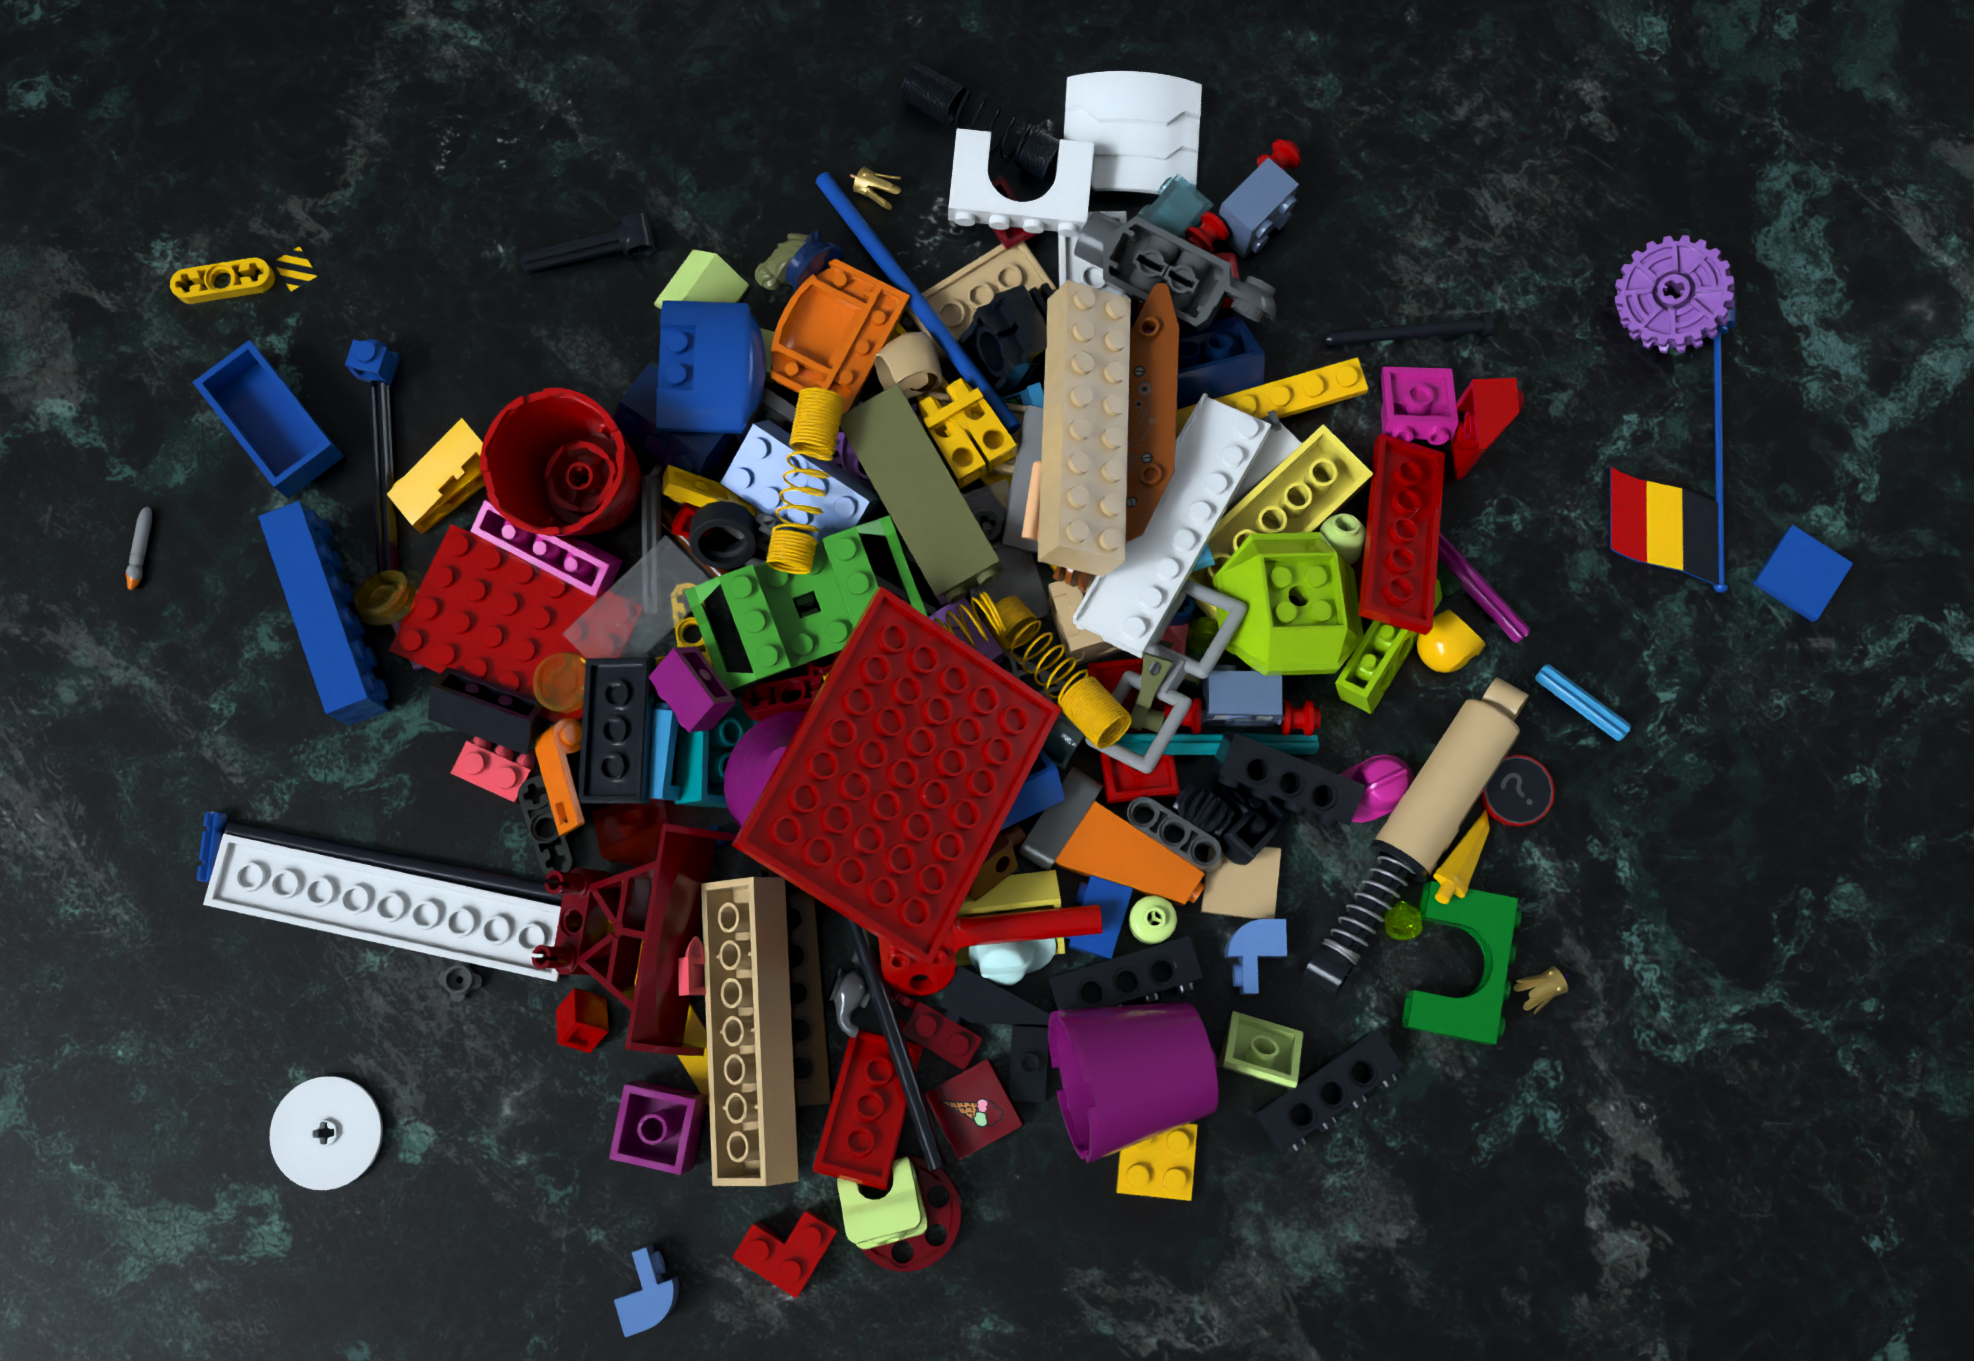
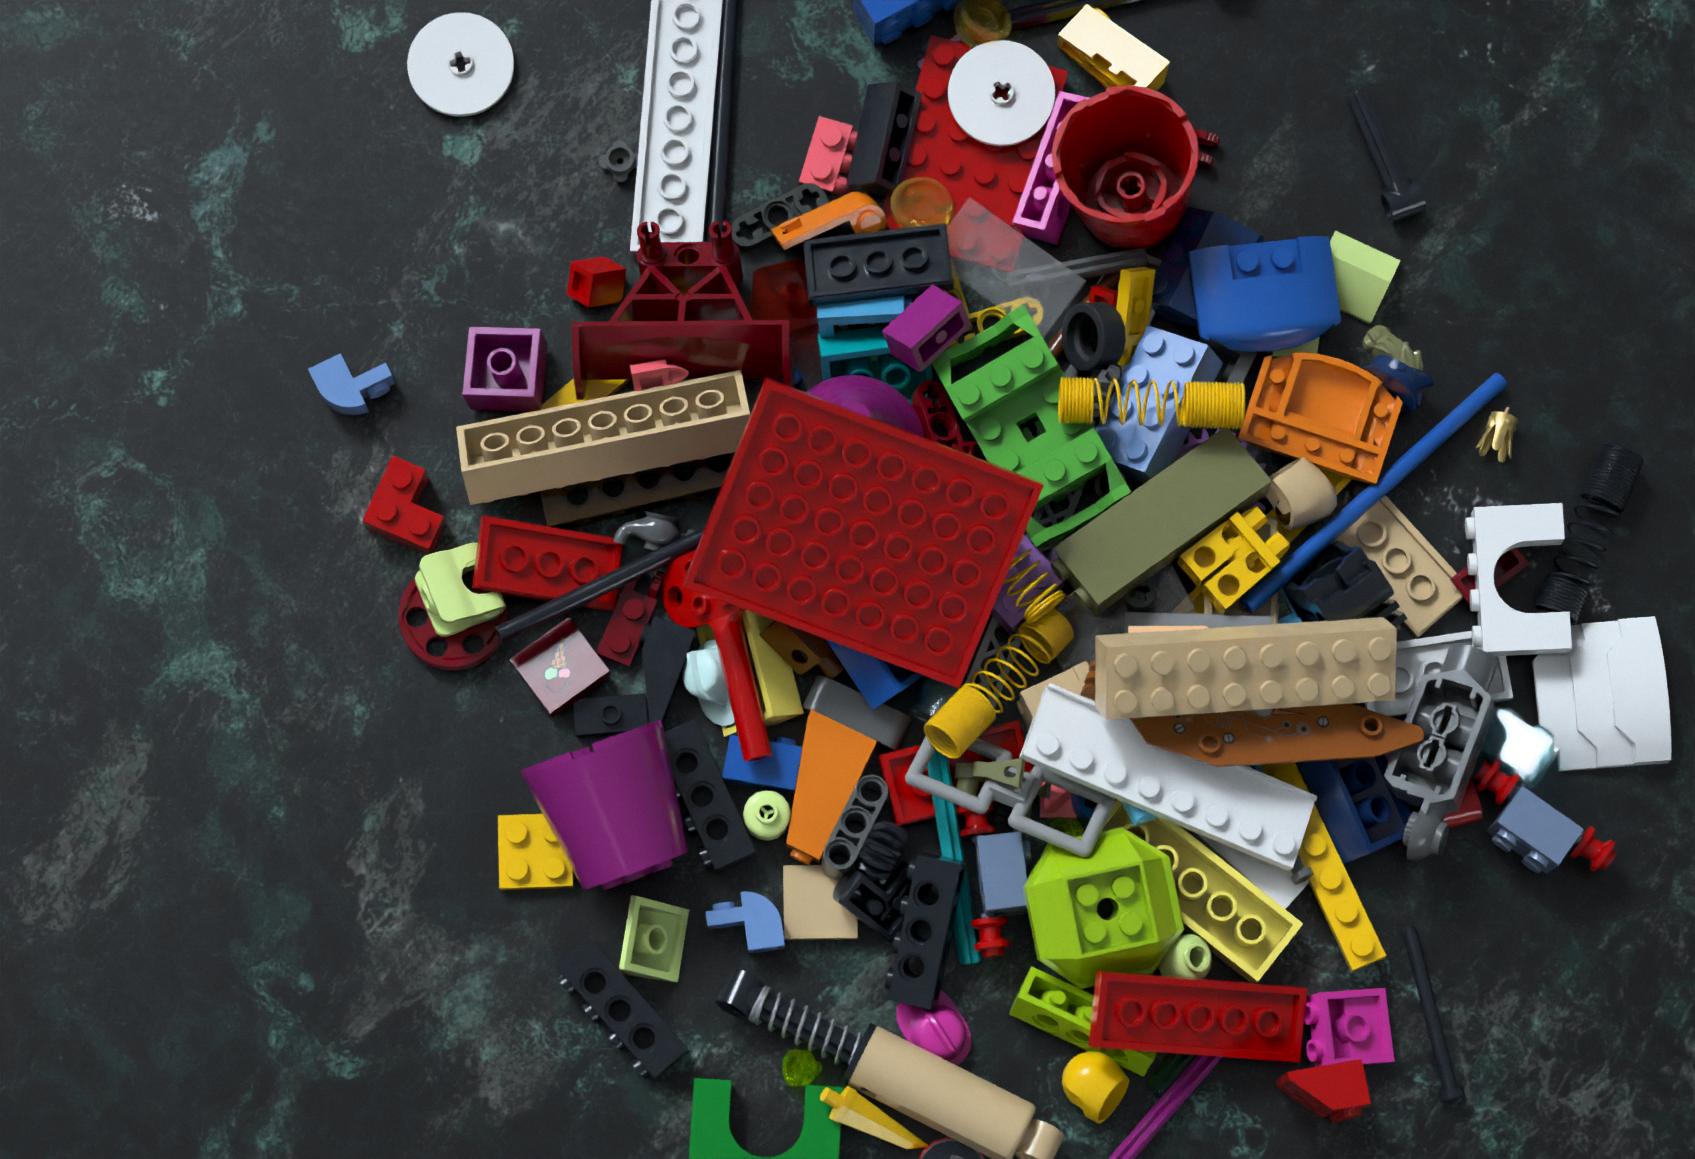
camera: 80 degrees right, 0 degrees up
(435, 579) = (997, 120): none -> white piece

